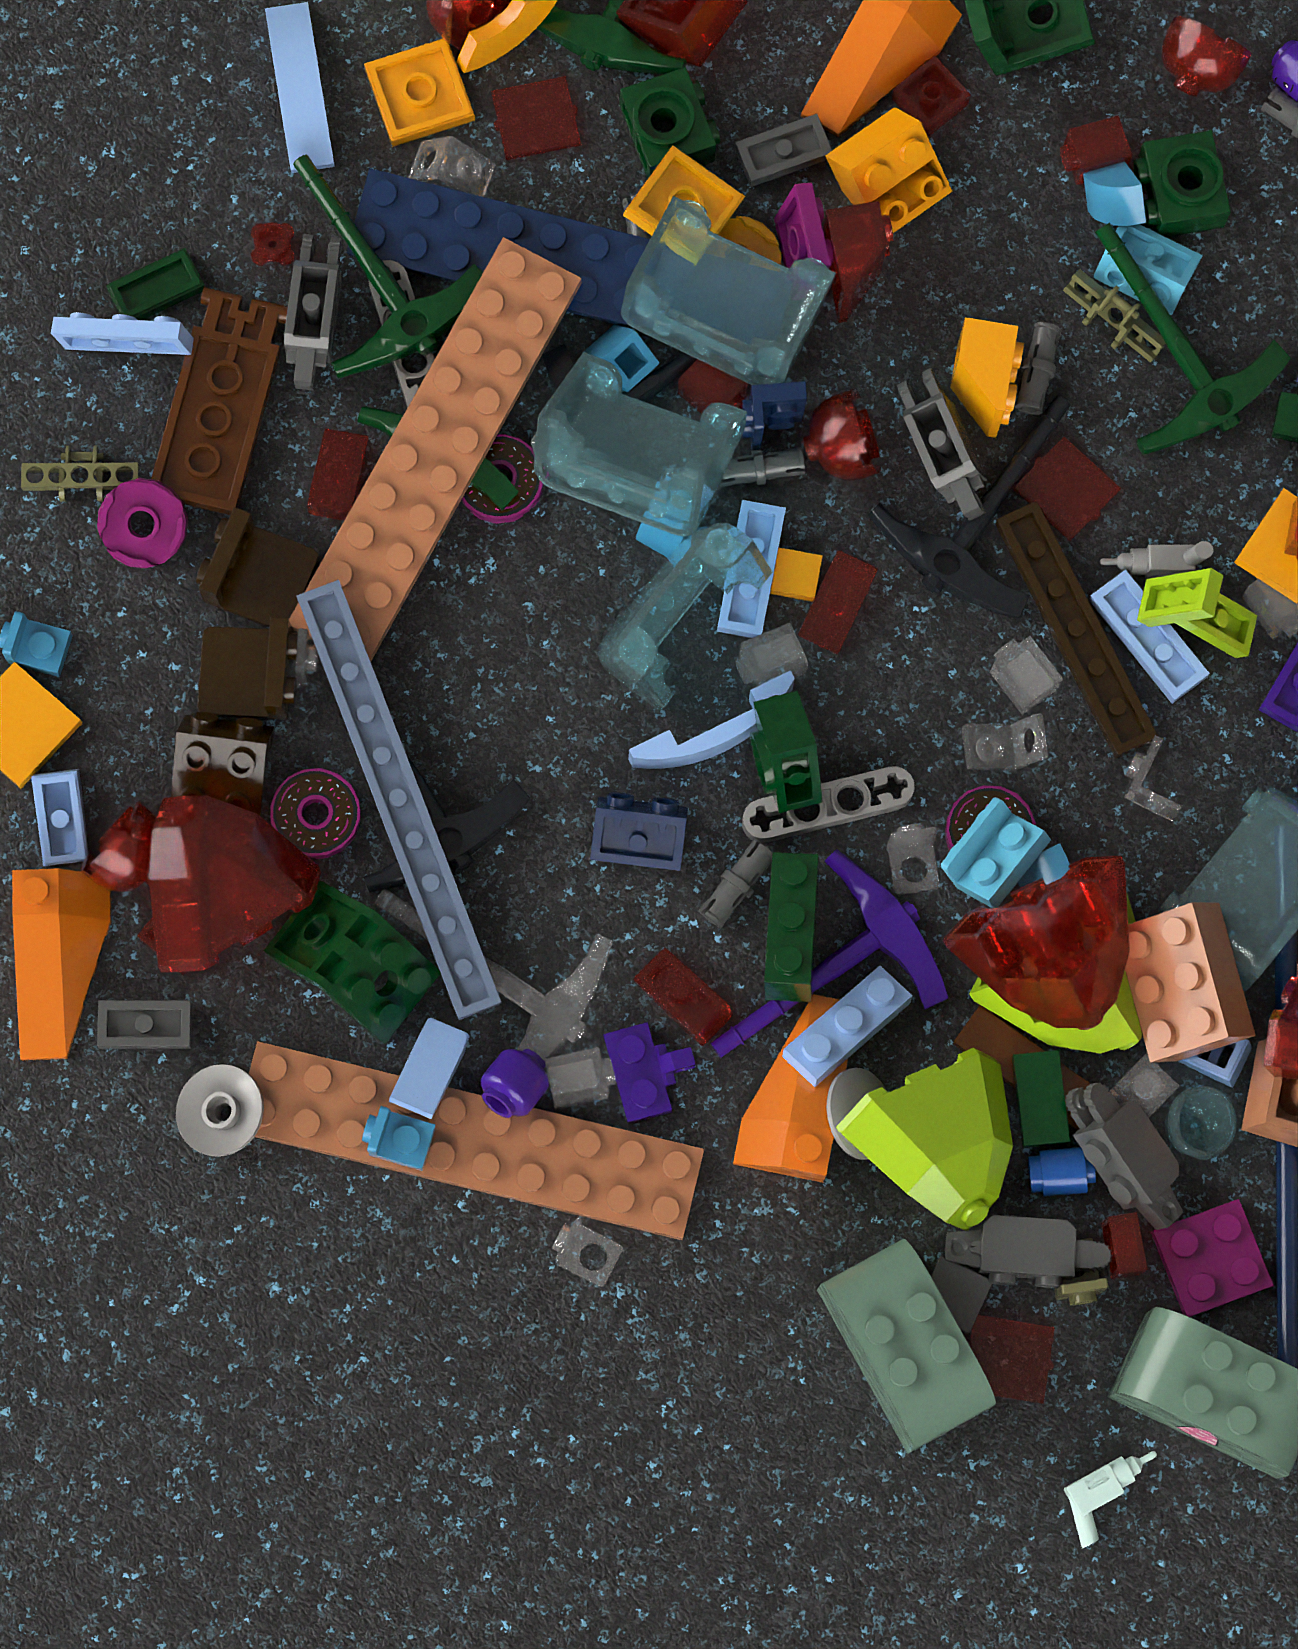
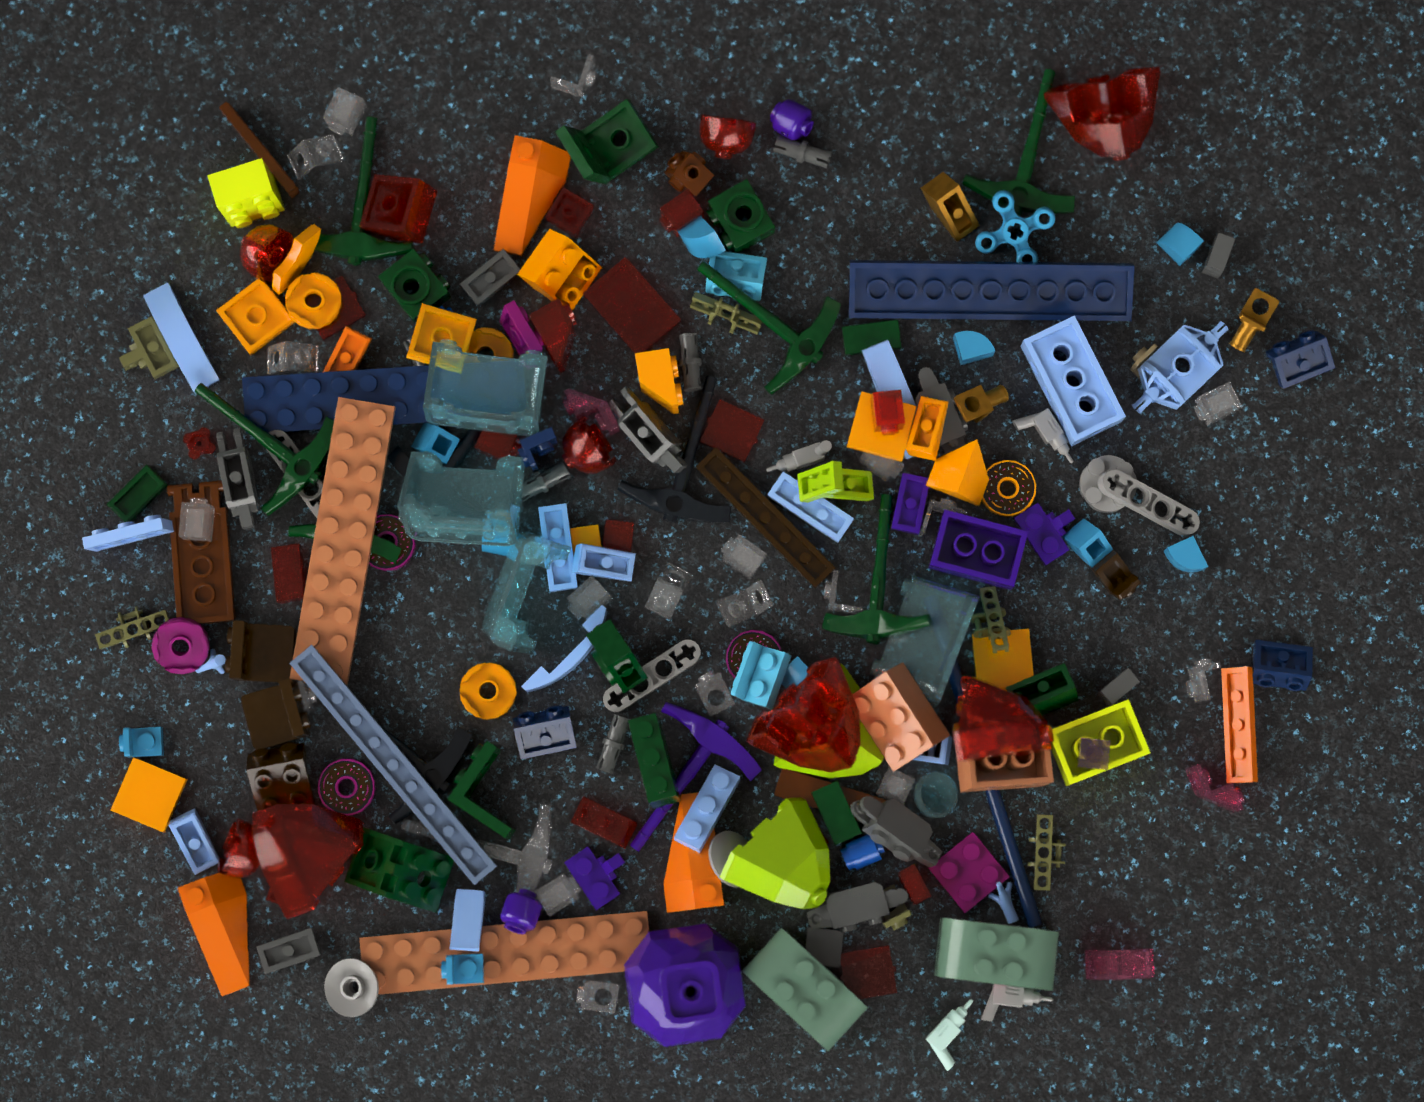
camera: 10 degrees left, 5 degrees up
(183, 564) = (214, 662): none -> light blue bar
(231, 347) = (196, 520): none -> clear brick
(246, 87) = (149, 350): none -> olive hinge
(502, 862) = (467, 782): none -> dark green bracket
(506, 119) = (317, 316): none -> light orange tile
(539, 182) = (348, 351): none -> orange plate
(570, 770) = (475, 679): none -> light orange tile
(683, 1270) = (666, 966): none -> dark purple rock
(812, 611) = (603, 562): none -> light blue slope
(858, 371) = (585, 405): none -> clear pink slope
(893, 688) = (668, 591): none -> clear bracket
(978, 258) = (631, 307): none -> clear red plate
(1128, 92) = (688, 172): none -> reddish brown brick
(1194, 834) = (876, 623): none -> dark green piece
(1216, 1468) = (1010, 996): none -> light grey piece
(1254, 1317) = (1005, 901): none -> light blue bar

